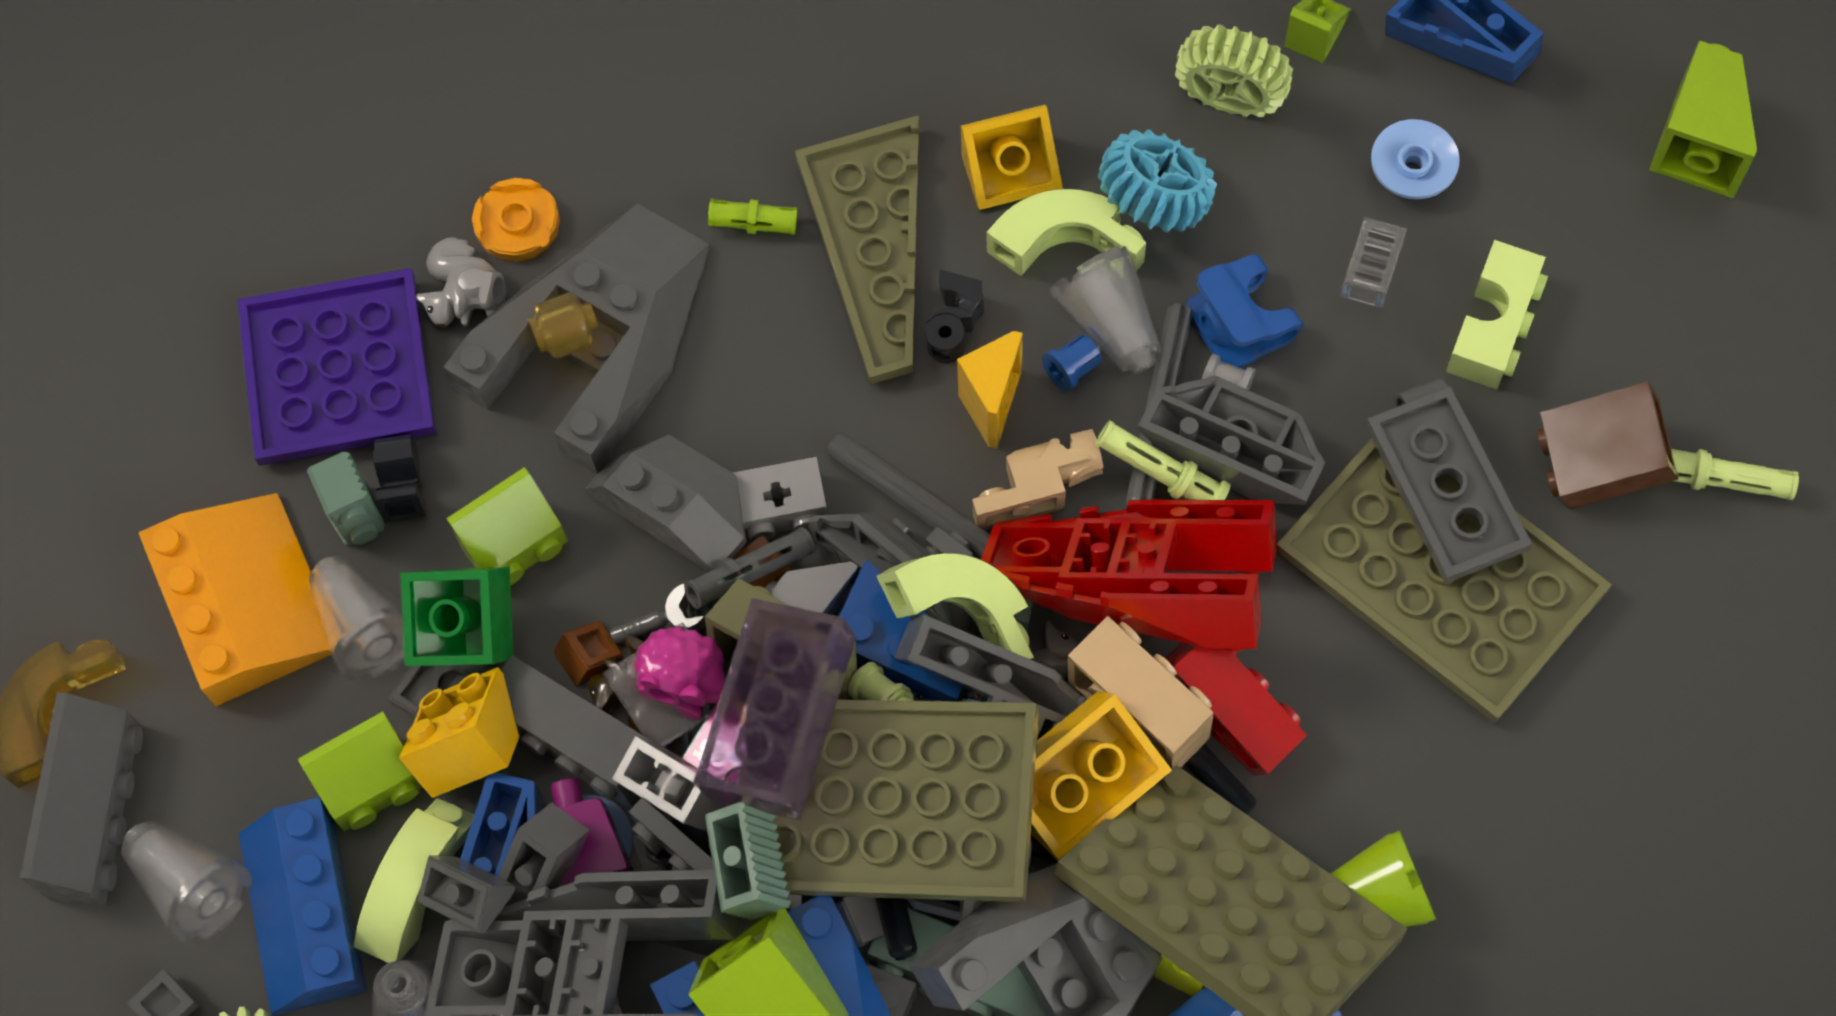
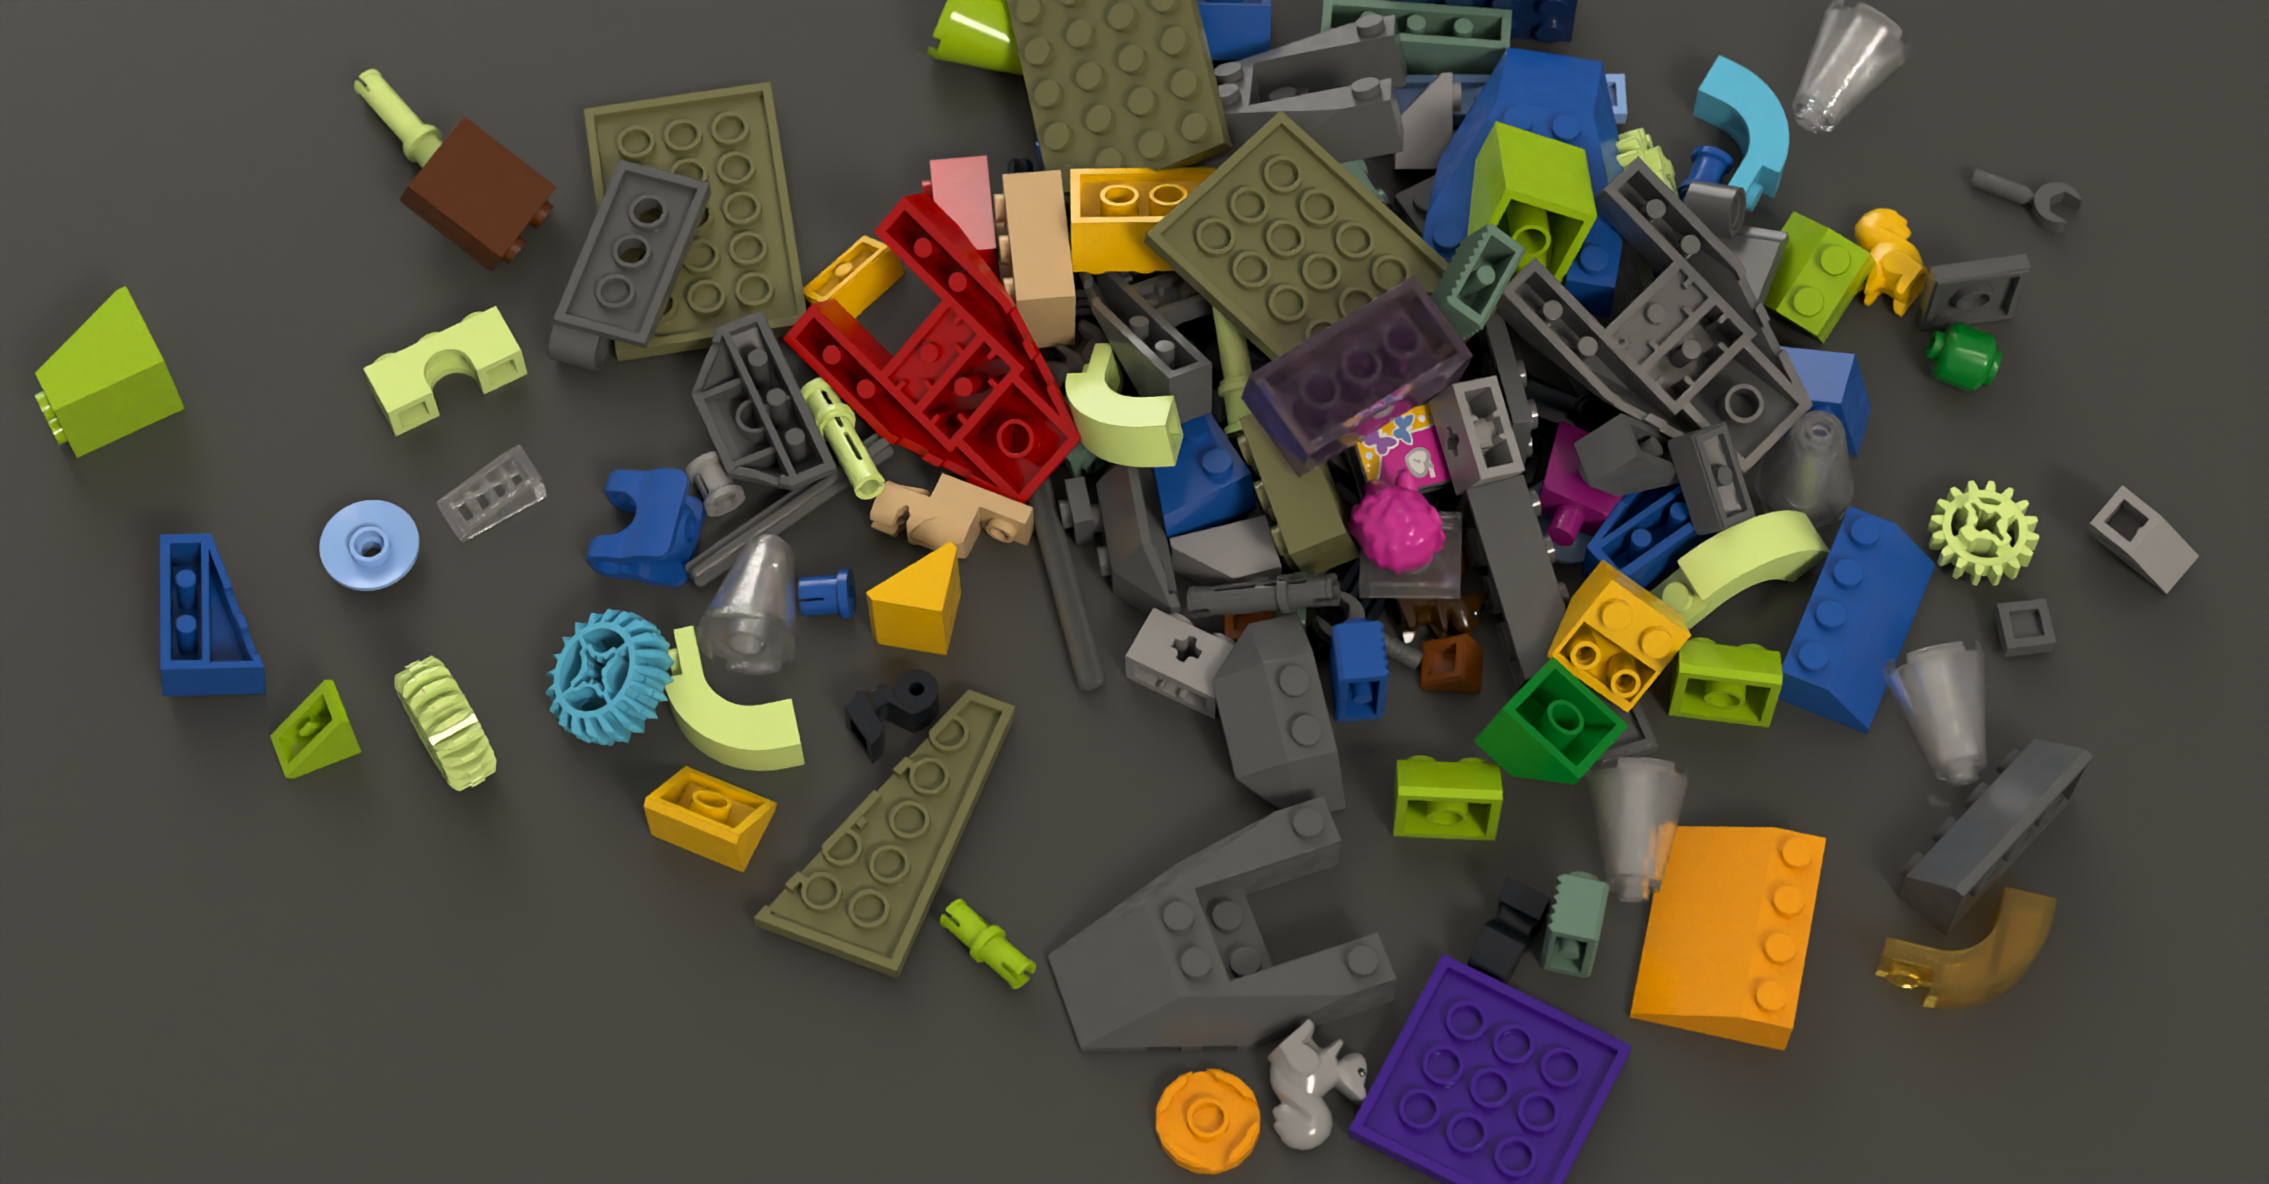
camera: 145 degrees left, 5 degrees down
(563, 325) = (1255, 934): clear yellow head -> none
(638, 569) = (1359, 670): none -> blue brick
(1286, 615) = (857, 276): none -> yellow slope

